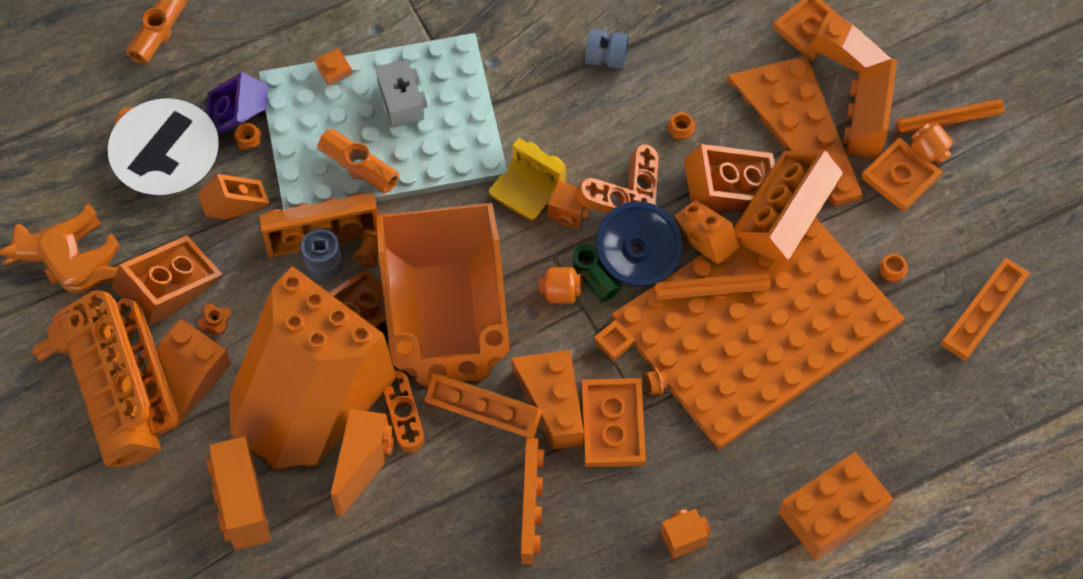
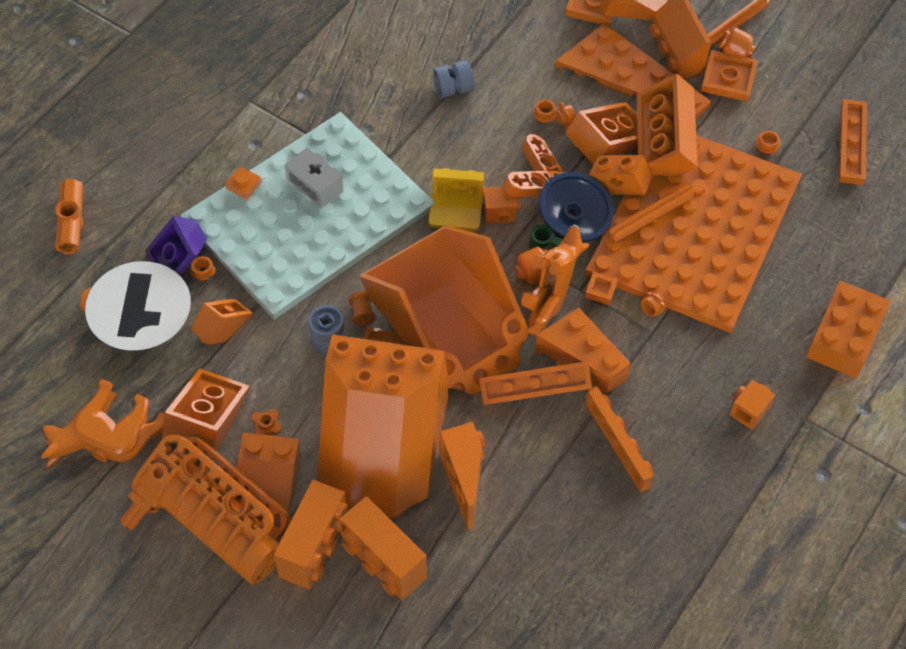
camera: 30 degrees left, 5 degrees down
(181, 446) = (311, 535): none -> orange brick
(344, 217) = (289, 321): orange slope -> none
(370, 169) = (325, 243): orange piece -> none
(410, 419) = (489, 427): orange beam -> none
(564, 310) = (554, 280): none -> orange animal
(613, 422) = (645, 347): orange plate -> none
(696, 138) = (565, 115): none -> orange plate

